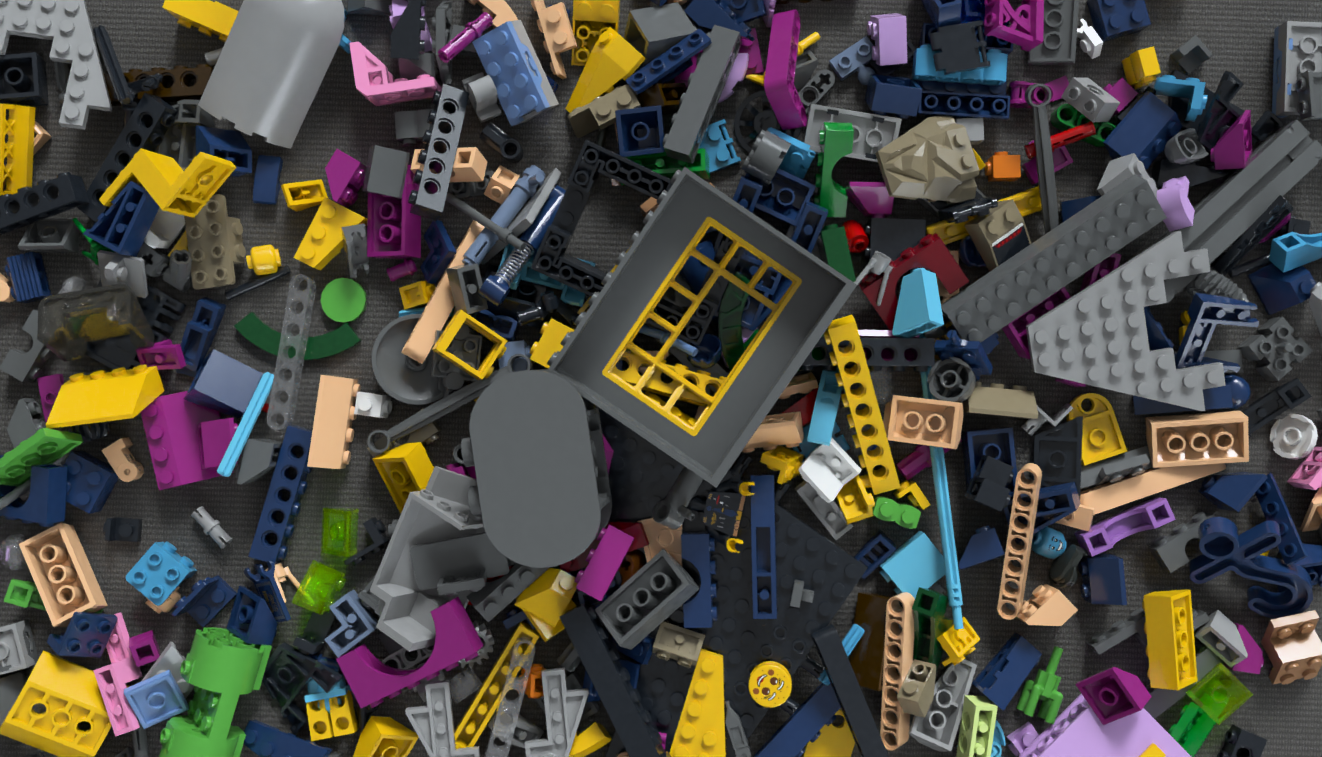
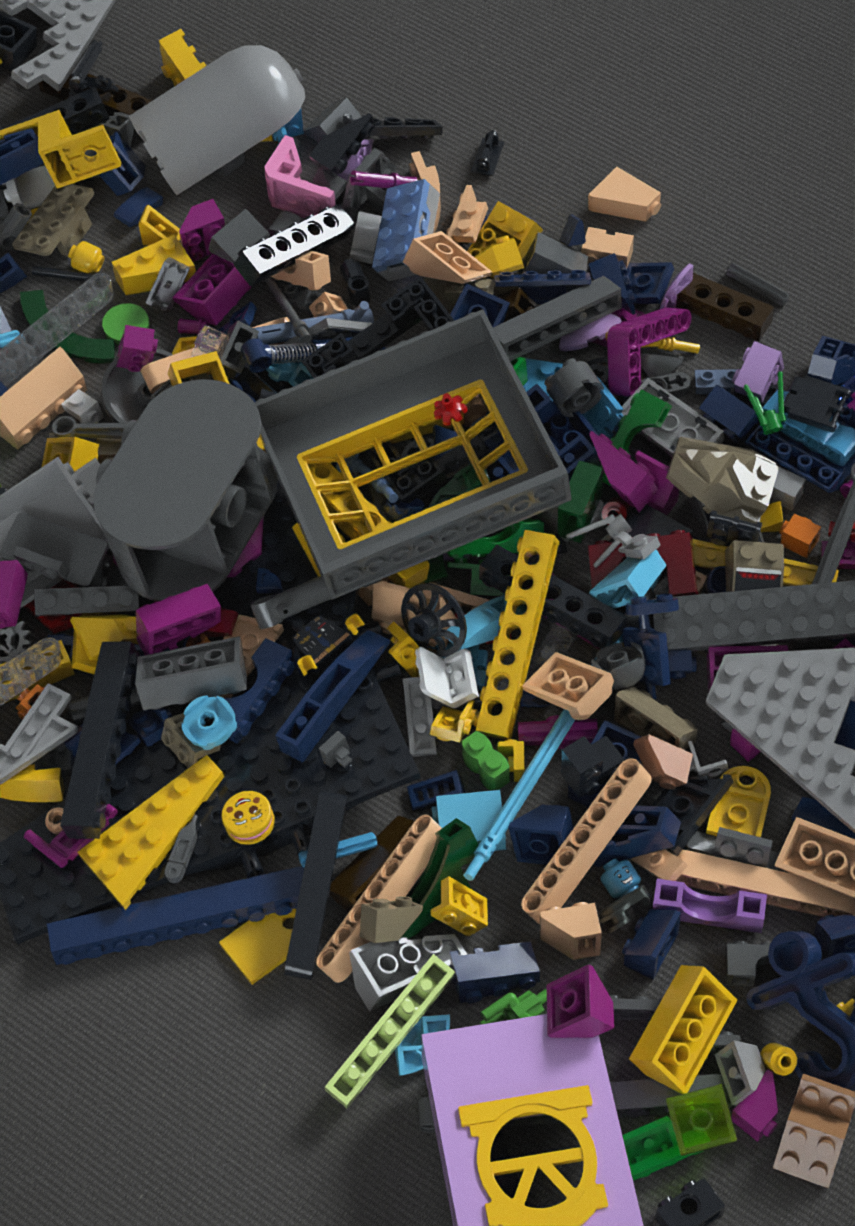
camera: 40 degrees right, 30 degrees down
(389, 342) = (136, 348): none -> magenta brick
(440, 294) = (208, 341): none -> clear slope
(581, 95) = (443, 259): none -> light nougat slope
(639, 474) = (268, 582): none -> dark blue tile
(692, 621) = (212, 735): none -> medium azure plate
(722, 275) = (449, 409): none -> red plant
(797, 449) = (427, 622): none -> black wheel
(859, 216) = (628, 479): none -> magenta slope
(913, 279) = (638, 546): none -> light grey plate
(933, 86) = (769, 419): none -> green plant
(958, 327) = (662, 604): none -> dark blue plate
(1033, 439) = (664, 761): none -> nougat slope
(1238, 610) = (779, 1058): none -> yellow brick

